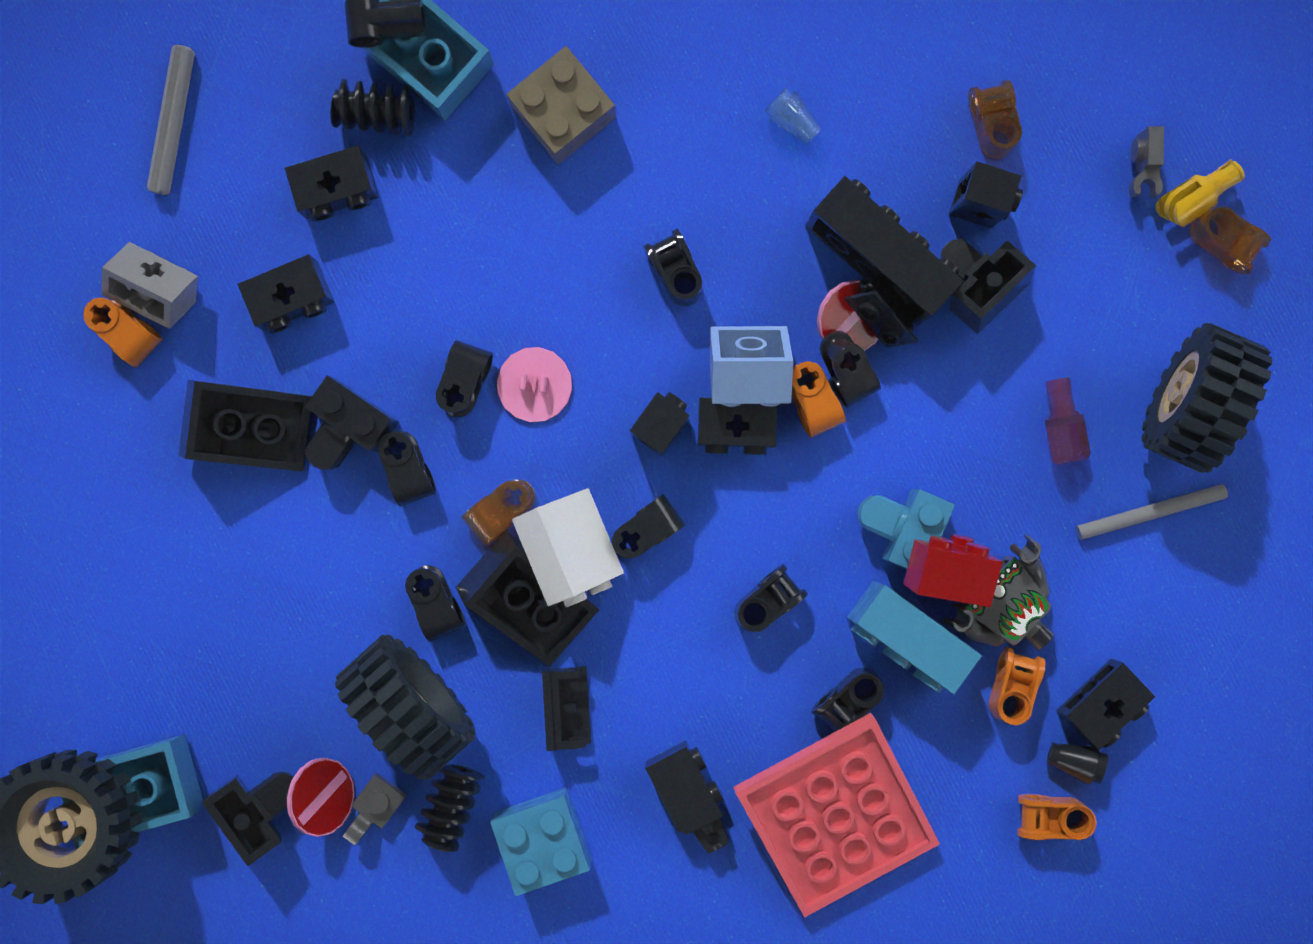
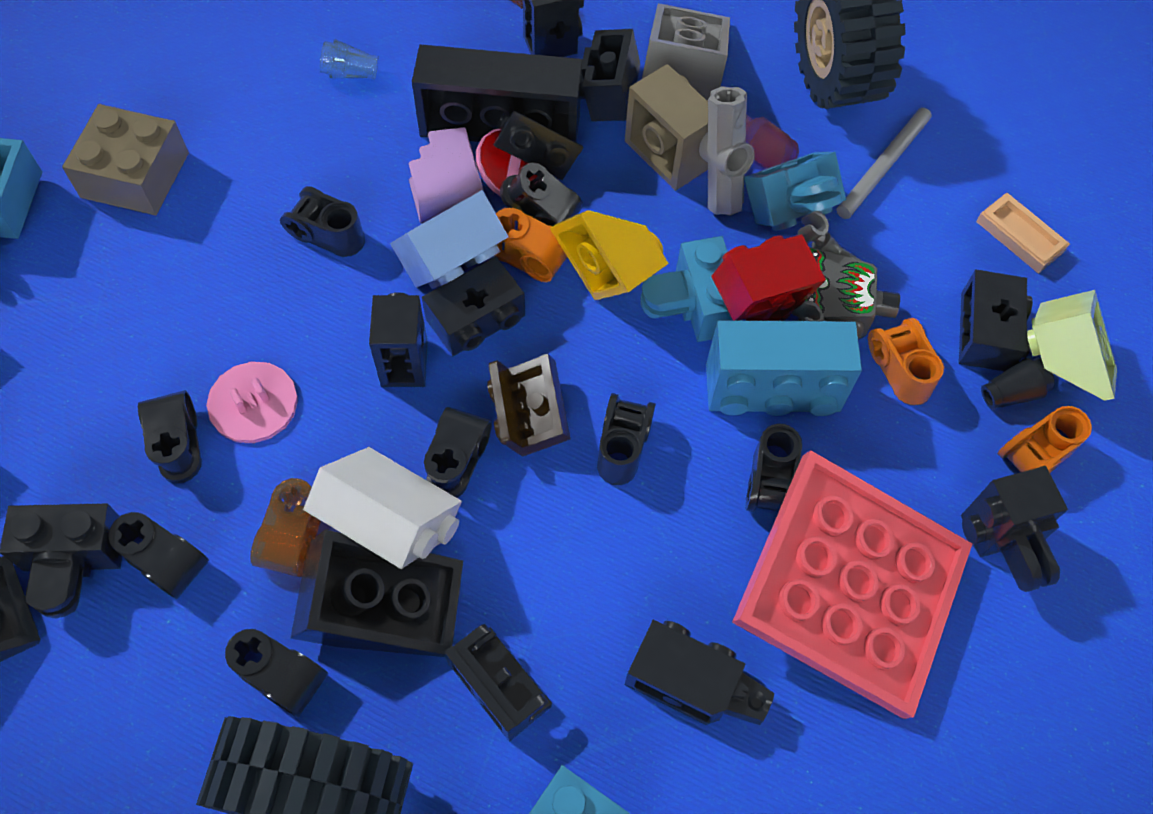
camera: 40 degrees left, 25 degrees down
(719, 530) = (528, 405): none -> bracket
(793, 291) = (443, 173): none -> lavender piece
(860, 465) = (609, 252): none -> yellow slope
(975, 856) = (1015, 519): none -> black brick
(999, 375) = (667, 125): none -> dark tan brick
(1014, 439) = (726, 150): none -> light grey piece
(1052, 499) = (795, 189): none -> dark azure brick
(1079, 297) = (690, 44): none -> light grey slope
(1140, 769) = (1075, 343): none -> yellowish green slope
(1202, 647) = (1022, 232): none -> light nougat tile

